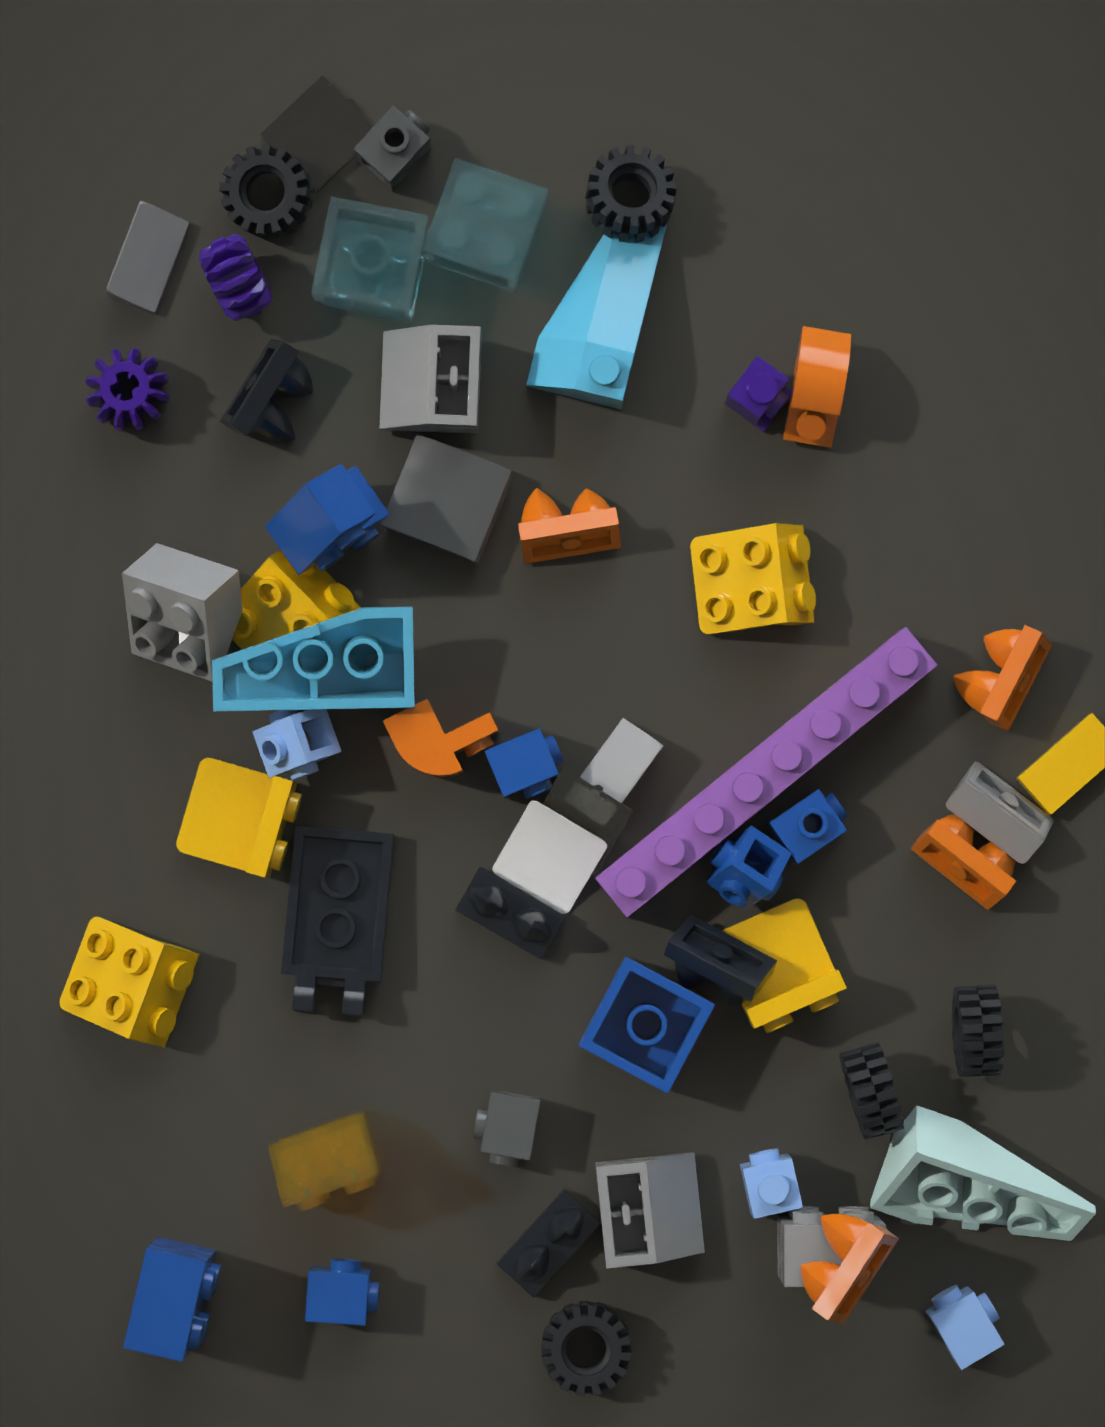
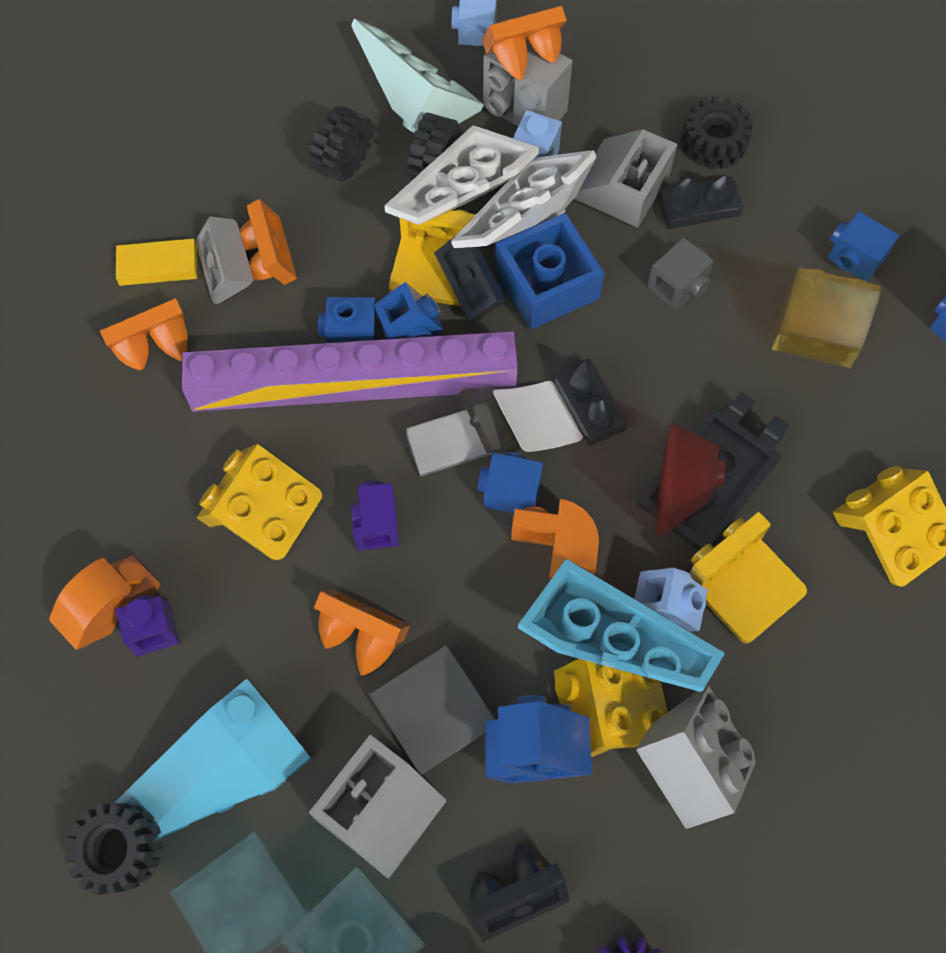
camera: 145 degrees left, 20 degrees down
(353, 868) = (687, 477): none -> clear red slope
(631, 641) = (375, 517): none -> dark purple brick
(718, 1088) = (528, 198): none -> white wedge
(802, 1073) = (461, 174): none -> white wedge

